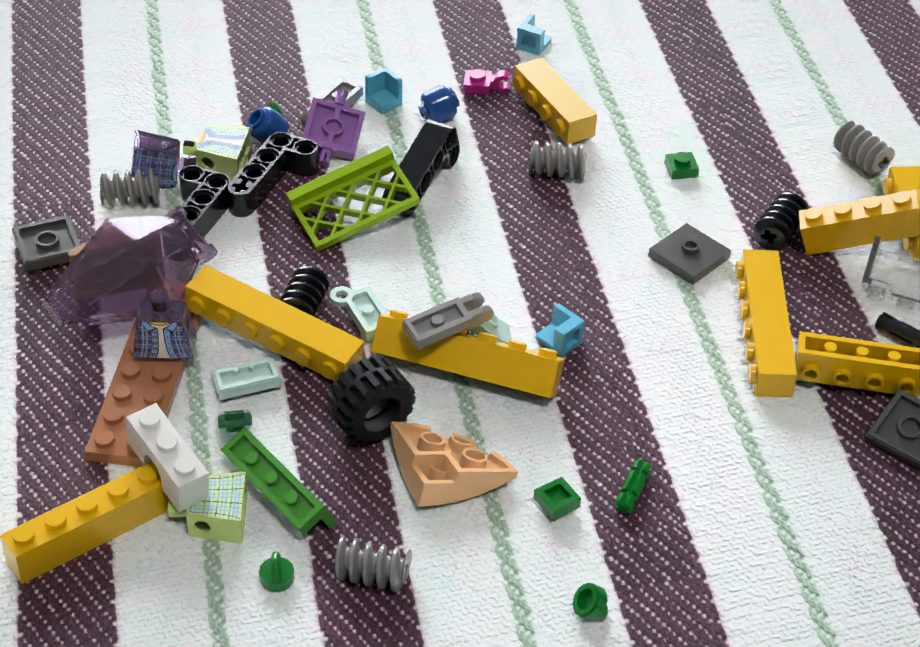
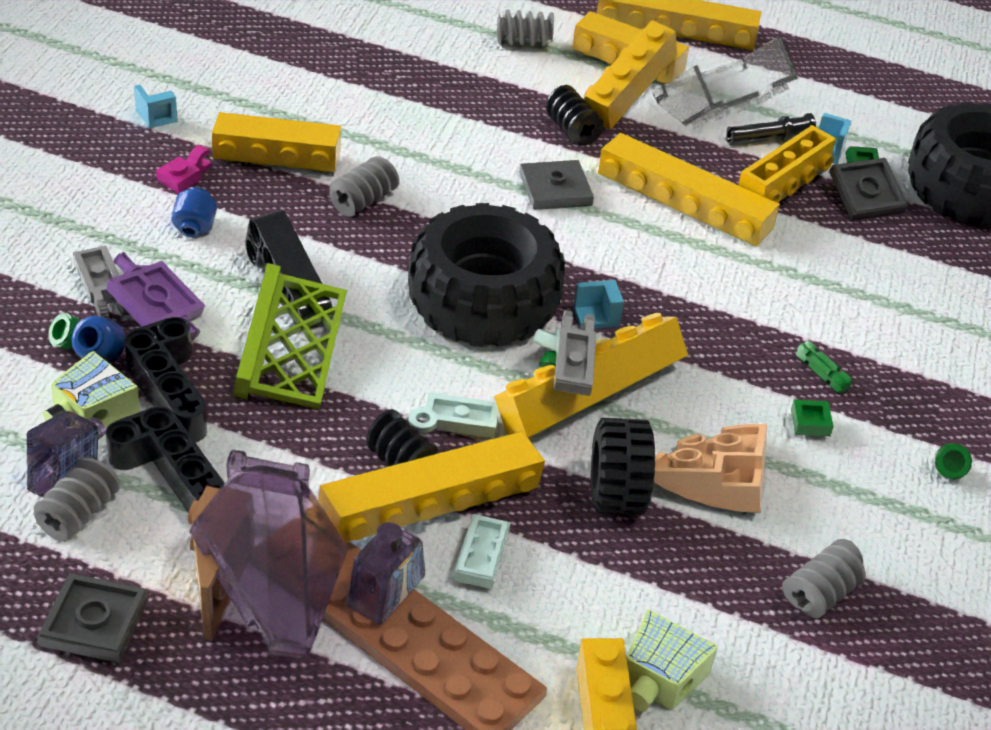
camera: 60 degrees left, 0 degrees up
(180, 470) = (583, 646): white arch -> none
(234, 420) = (555, 583): clear green plate -> none
(276, 482) = (667, 595): bright green fence -> none
(276, 573) = (780, 661): green tile -> none
(383, 90) = (130, 233): medium azure panel -> none
(512, 252) = (486, 274): none -> black tyre
(681, 165) = (435, 127): green plate -> none

